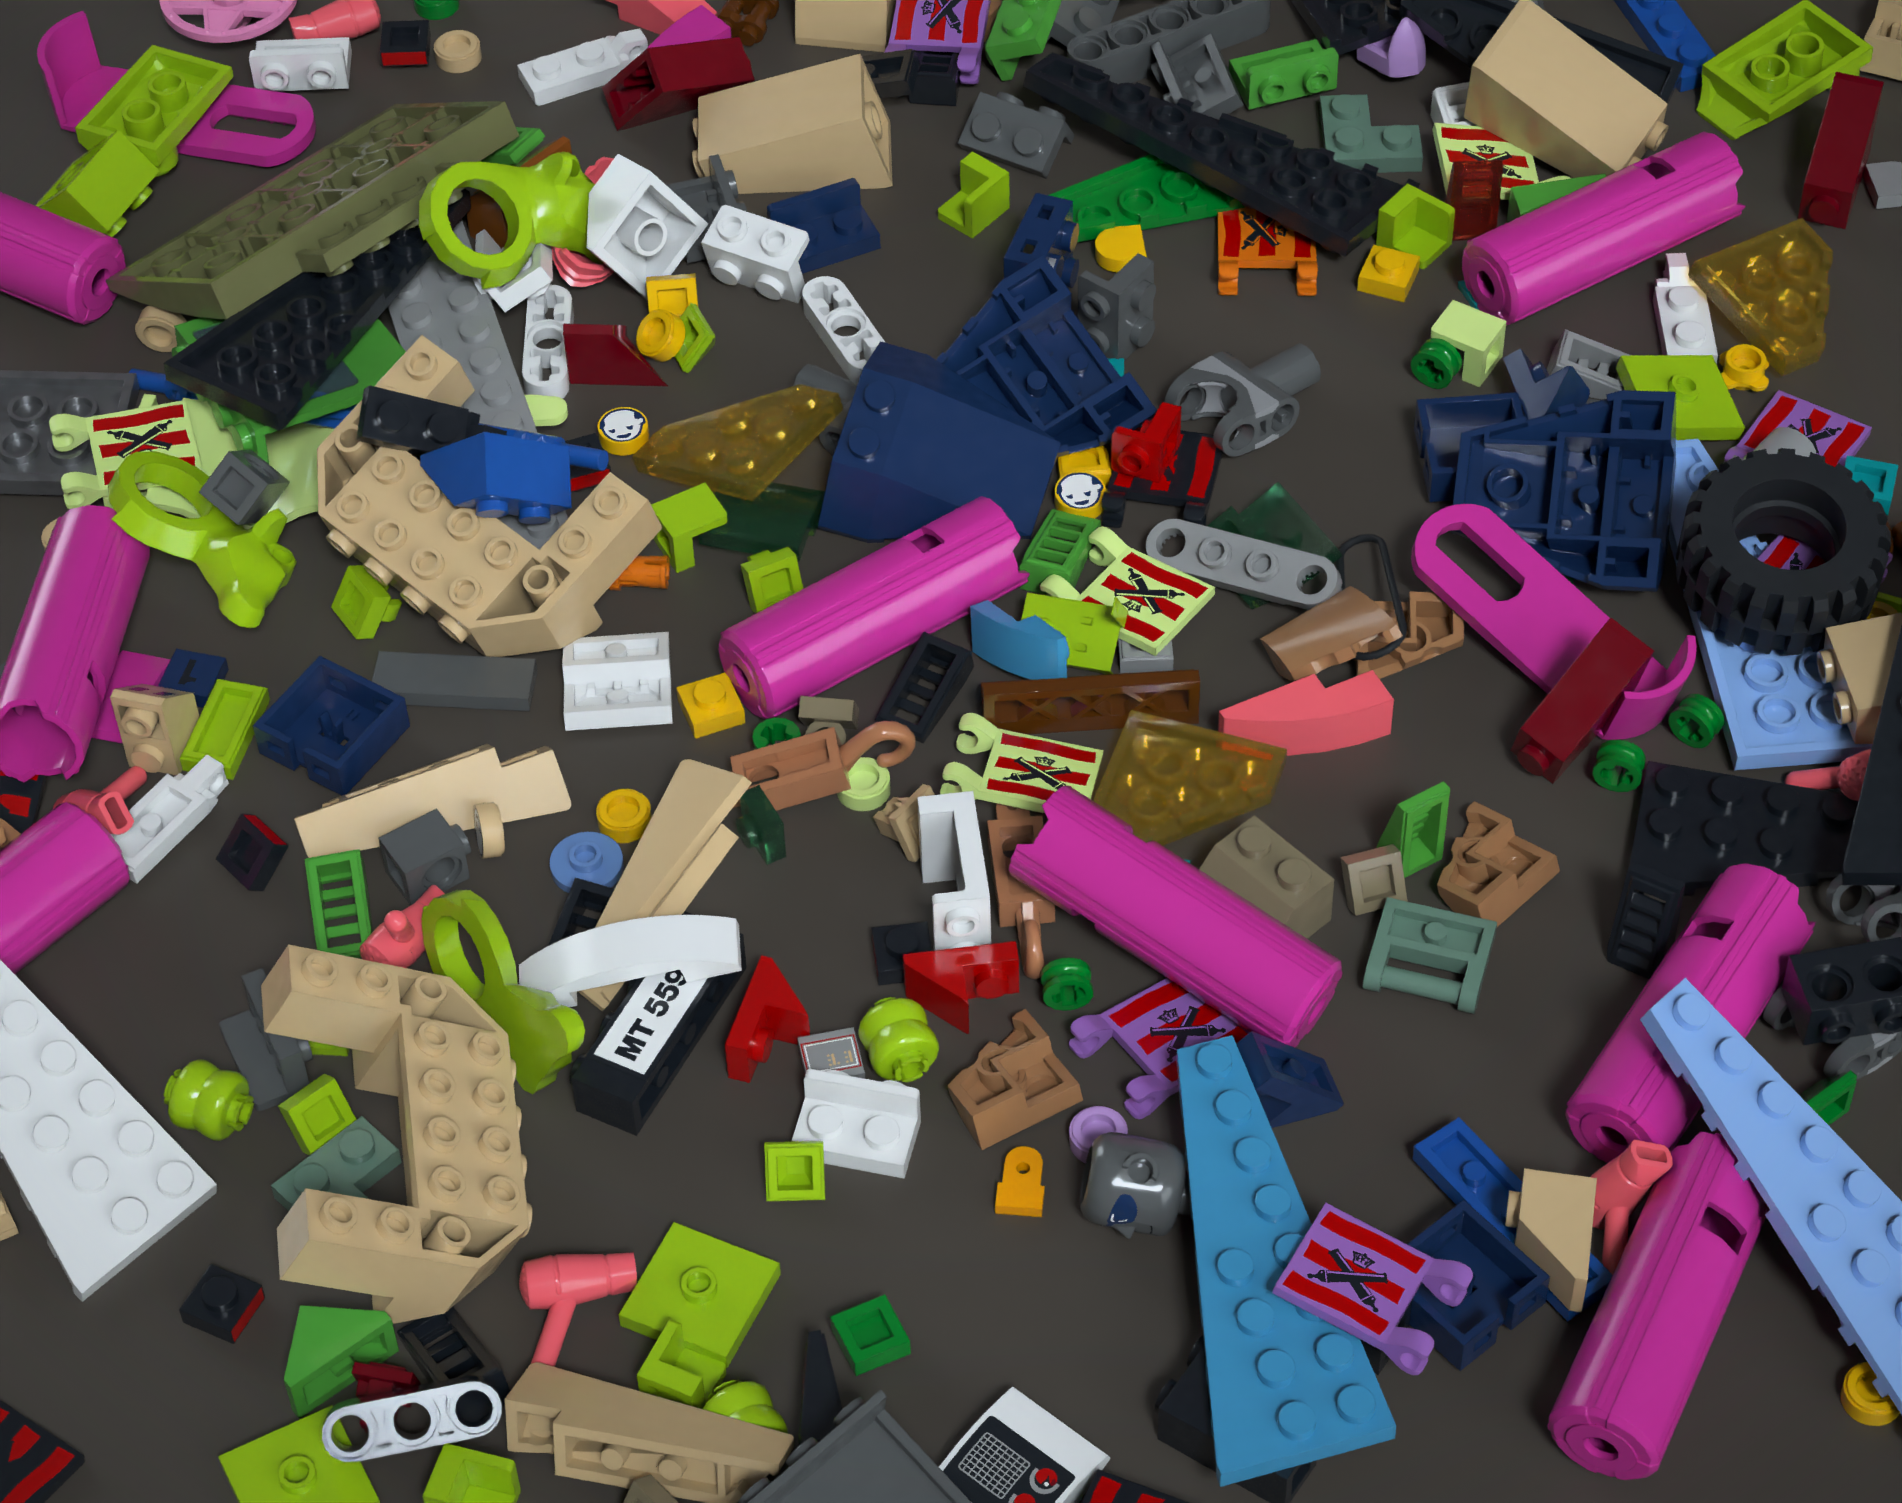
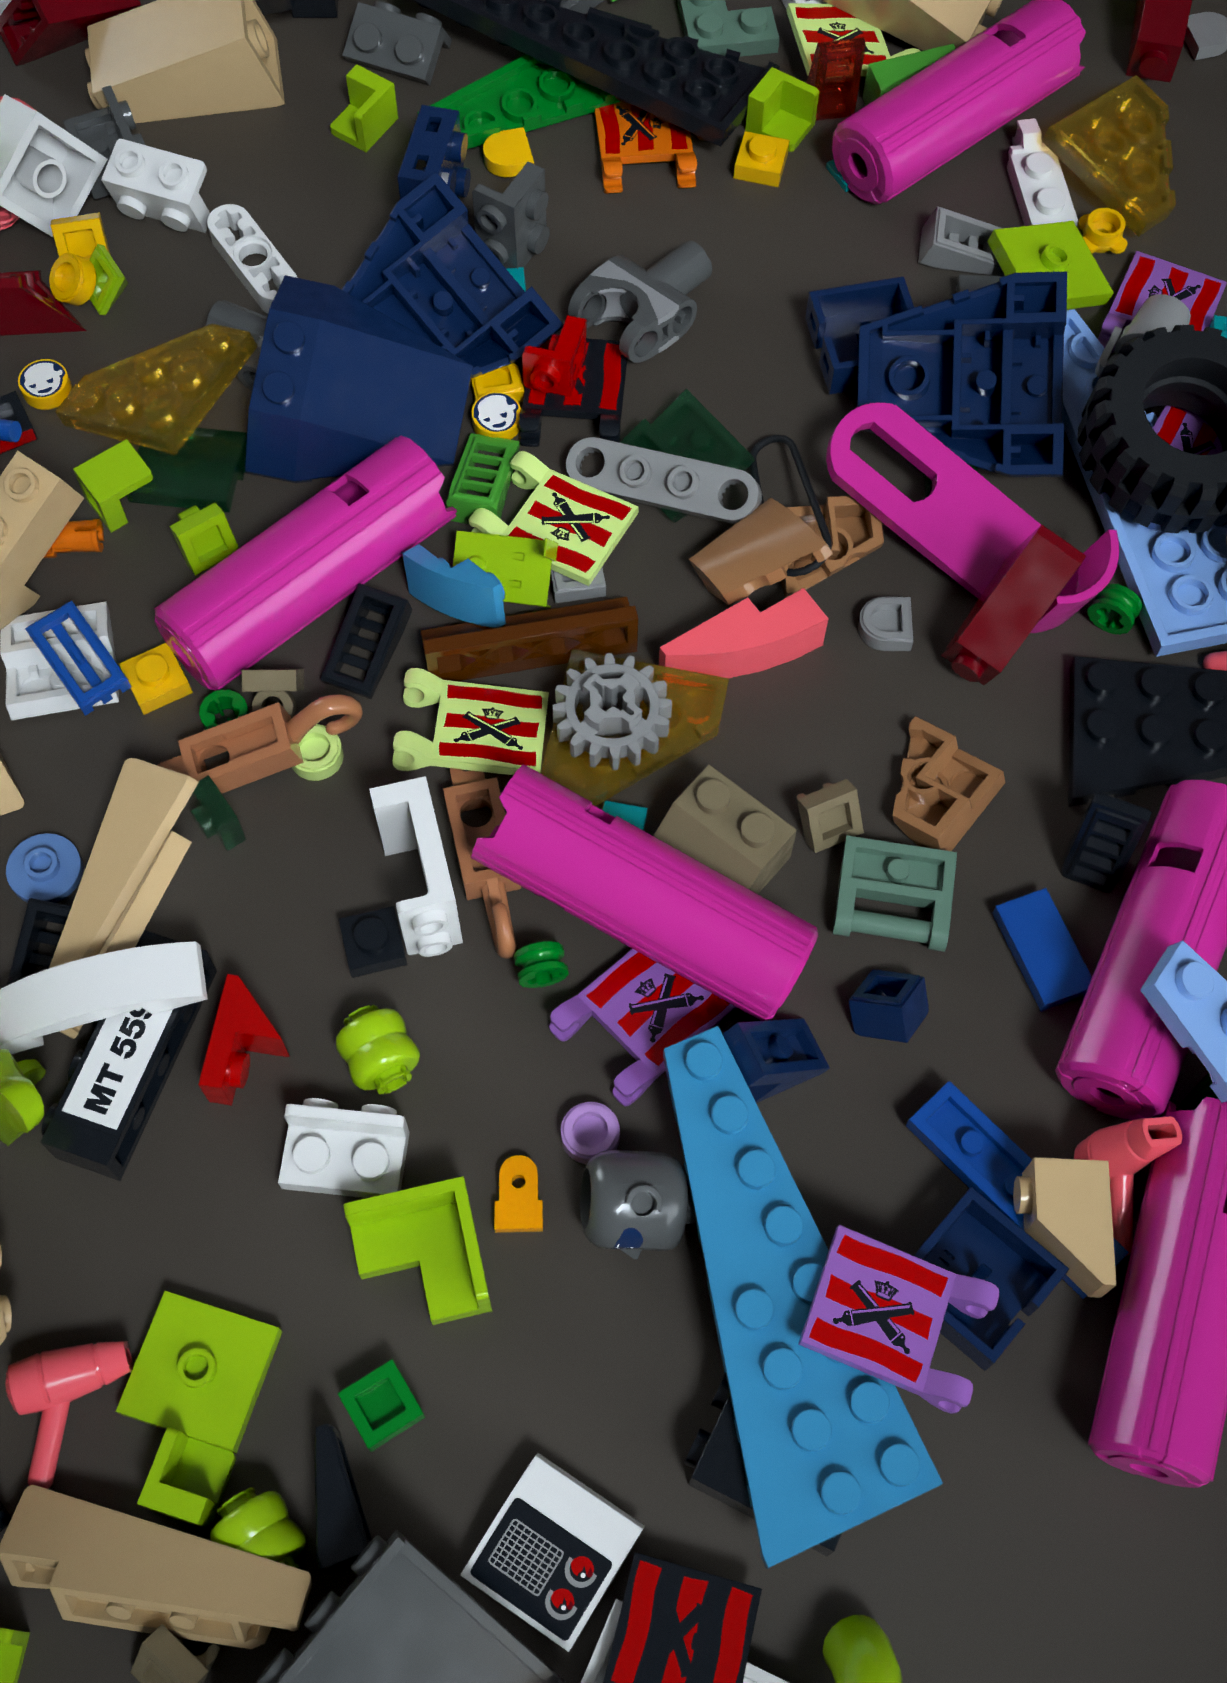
camera: 10 degrees left, 15 degrees up
(623, 815) = (77, 811): yellow tile -> none
(656, 705) = (100, 690): none -> blue tile
(794, 1170) = (285, 1215): lime slope -> none
(832, 1051) = (312, 1072): light grey tile -> none
(833, 221) = (227, 146): dark blue bracket -> none
(900, 821) = (354, 794): tan brick -> none
(928, 1194) = (425, 1229): none -> lime panel
(949, 977) = (419, 971): red slope -> none
(1013, 1084) = (498, 1083): medium nougat slope -> none
(1163, 762) = (612, 711): none -> light grey gear
(1410, 1052) = (889, 1005): none -> dark blue slope
(1419, 828) = (871, 761): bright green slope -> none
(1436, 363) = (819, 249): green bush -> none
(1458, 717) = (887, 624): none -> light grey tile
(1474, 333) = (852, 217): yellowish green panel -> none
(1542, 392) = (926, 278): dark blue slope -> none
(1572, 1016) = (1043, 949): none -> blue tile
(1619, 765) = (1048, 664): green bush -> none

